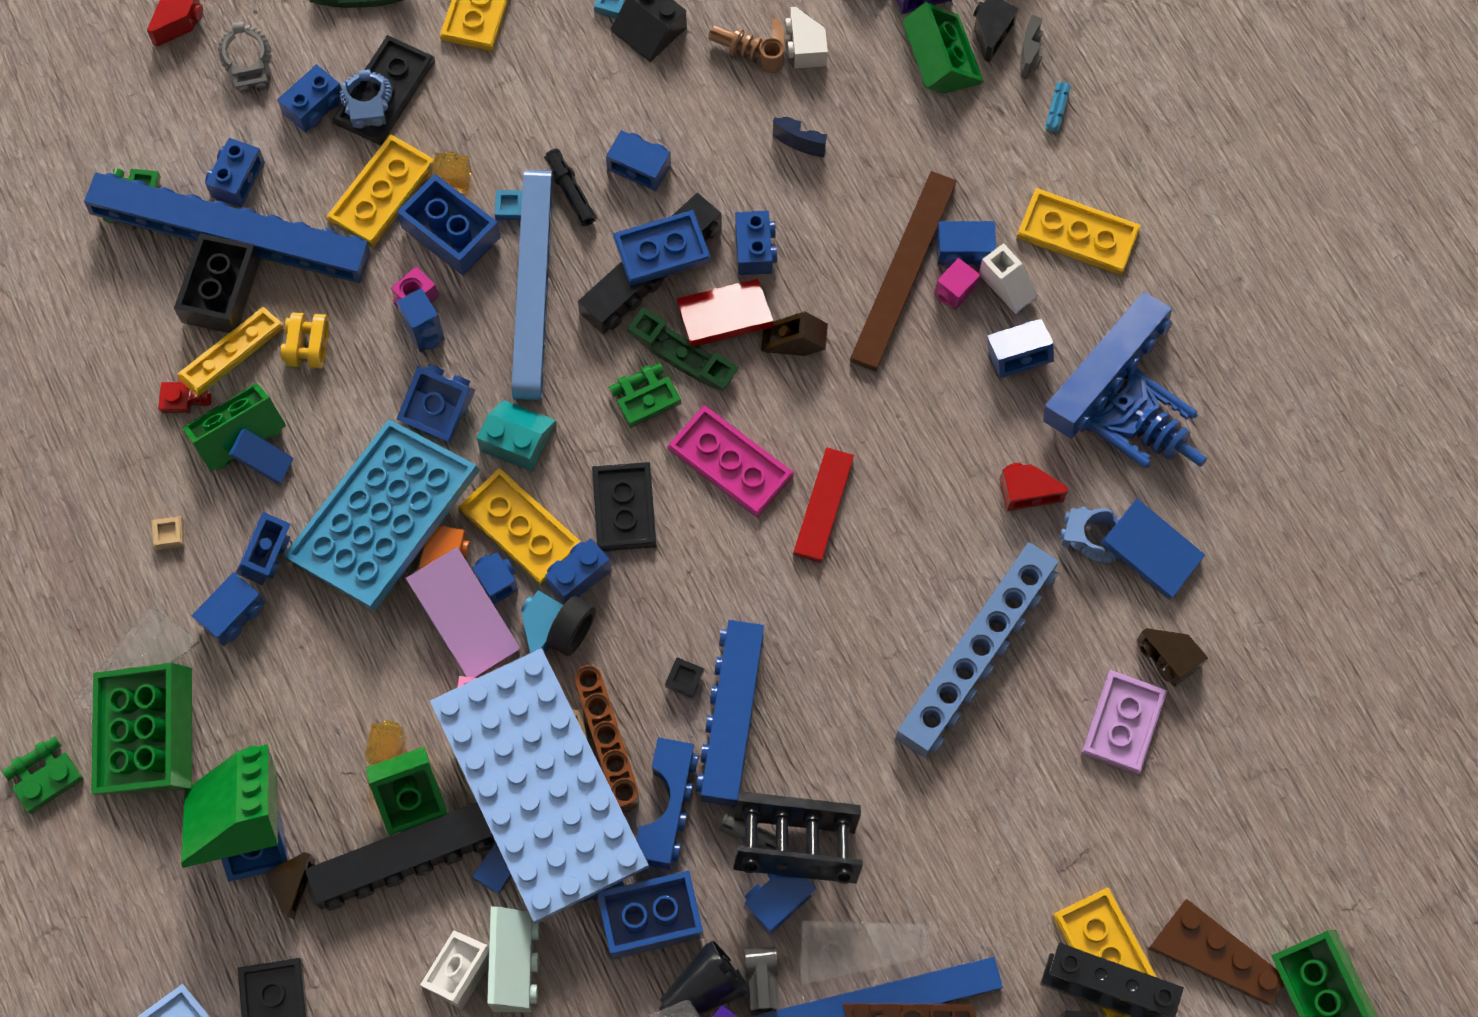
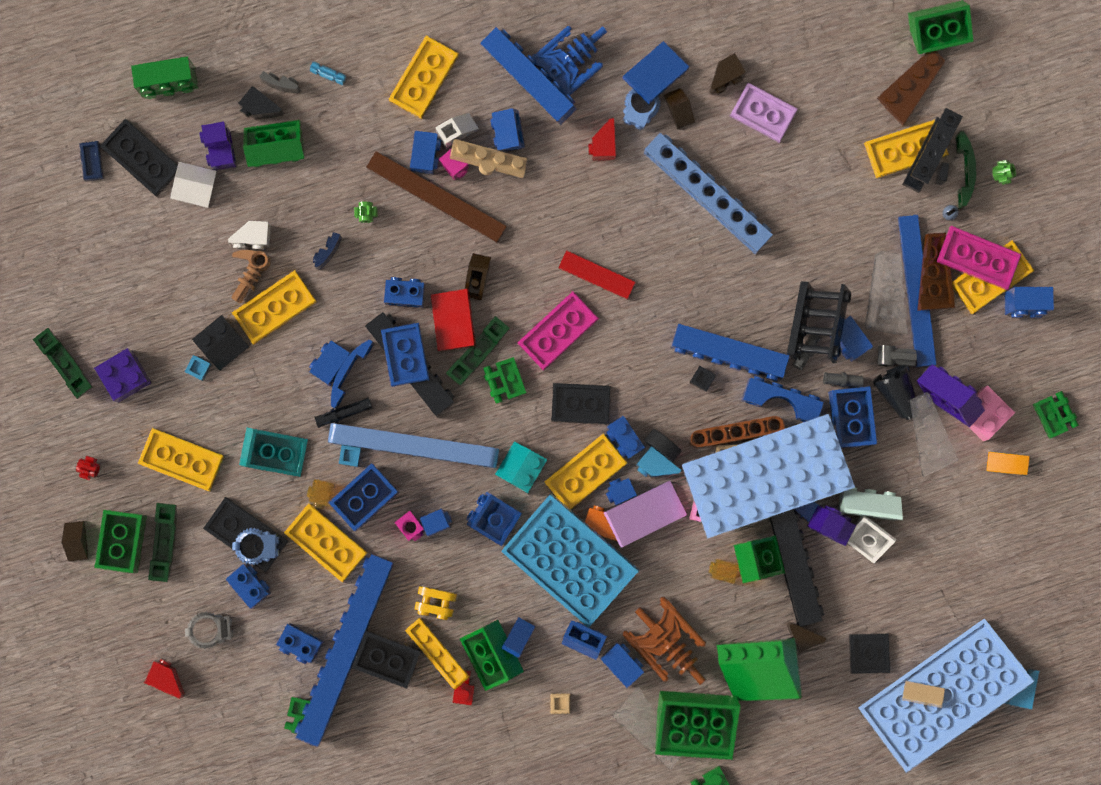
camera: 85 degrees left, 15 degrees up
(272, 668) = (663, 639): none -> dark orange bar
(470, 901) = (832, 524): none -> dark purple brick
(502, 105) = (273, 452): none -> teal slope
(596, 173) = (361, 351): none -> blue slope
(710, 84) = (274, 307): none -> yellow tile
(712, 897) = (843, 379): none -> dark grey pin
(864, 177) = (365, 212): none -> bright green gear
(971, 326) = (488, 159): none -> tan hinge
(1104, 592) = (680, 108): none -> dark brown slope

